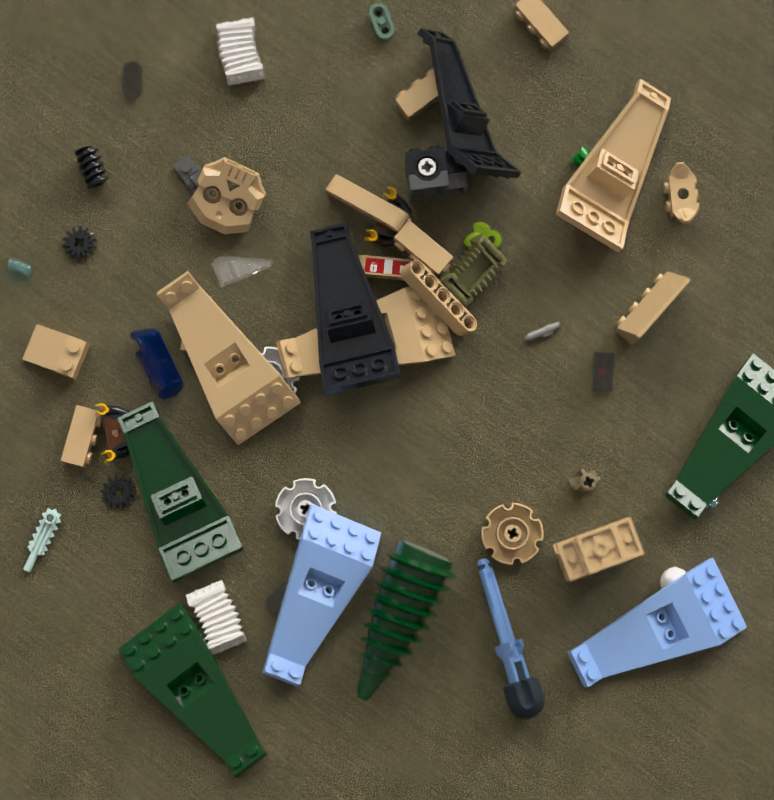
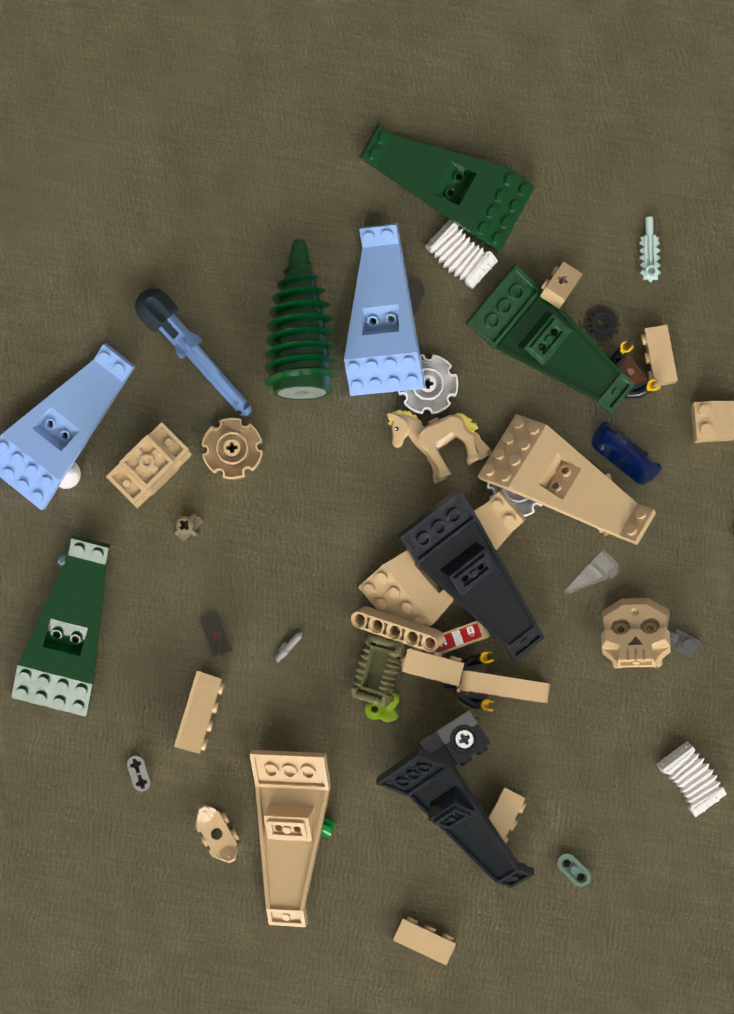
camera: 155 degrees right, 0 degrees up
(146, 536) = (561, 285): none -> tan brick
(319, 457) = (435, 436): none -> tan animal
(722, 280) = (134, 775): none -> light grey beam

